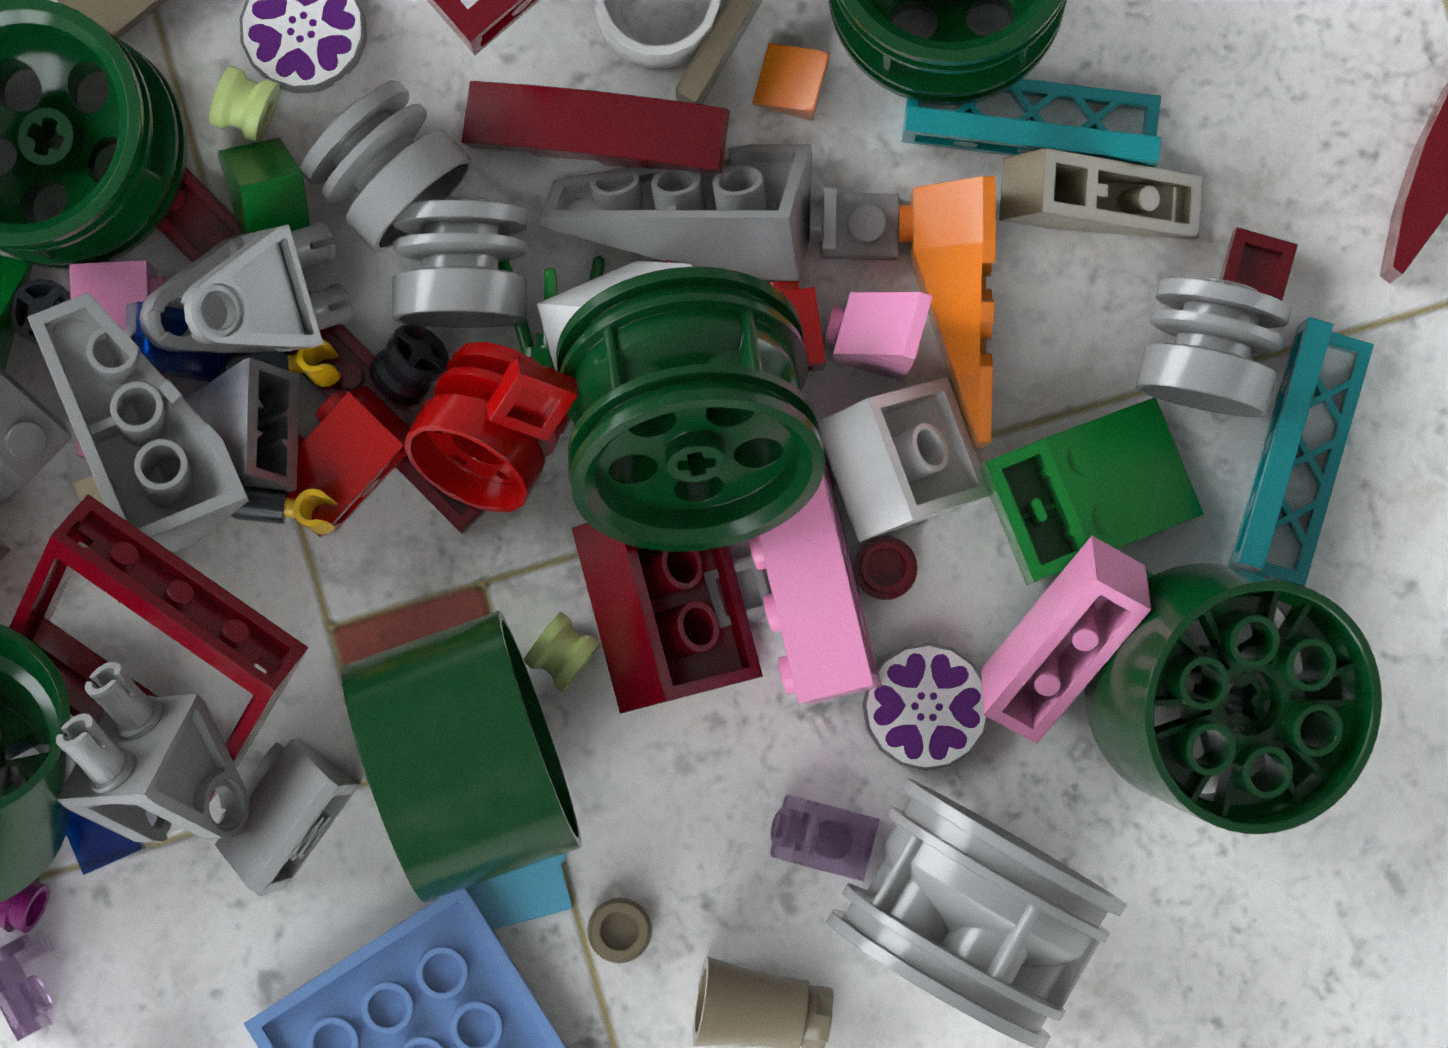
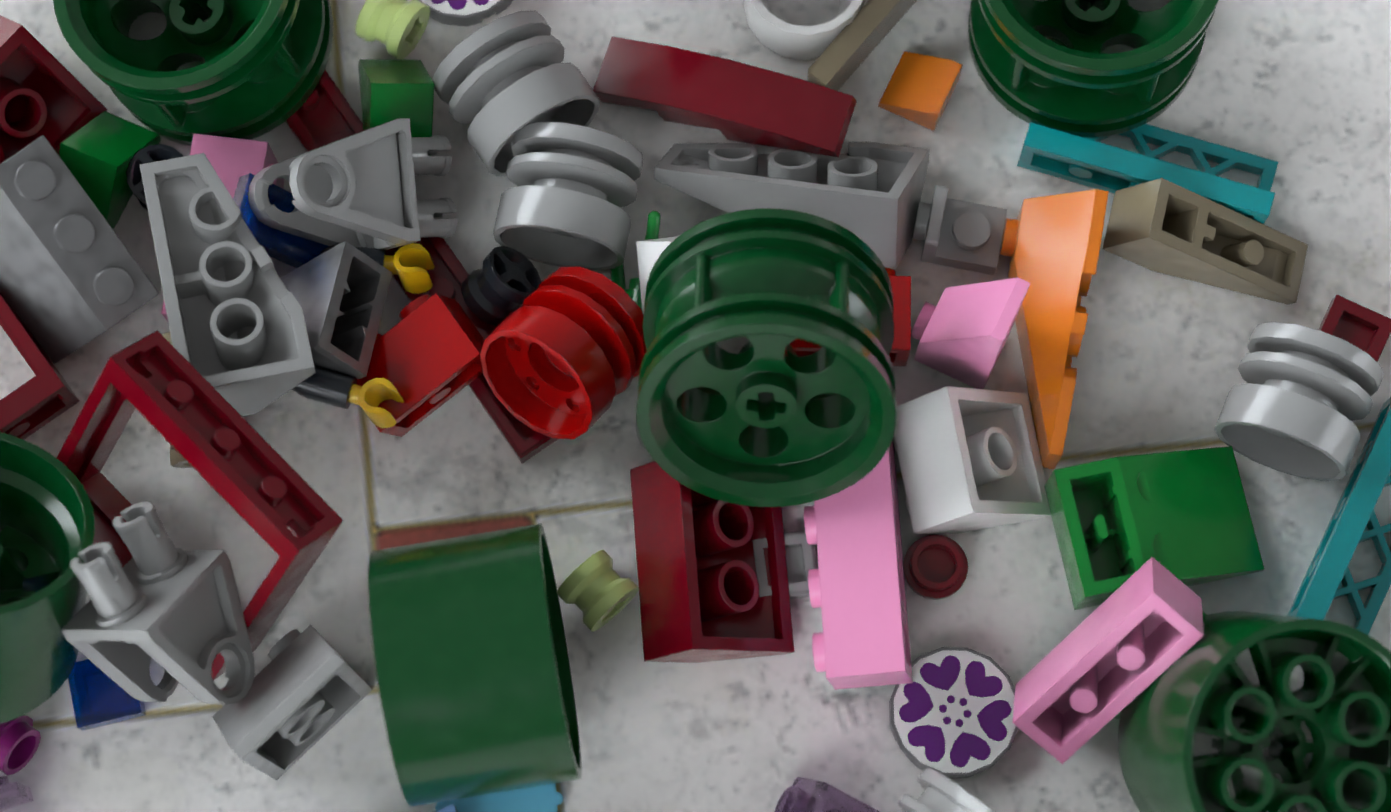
camera: 15 degrees right, 10 degrees down
(531, 398) = (614, 318): red tile -> none

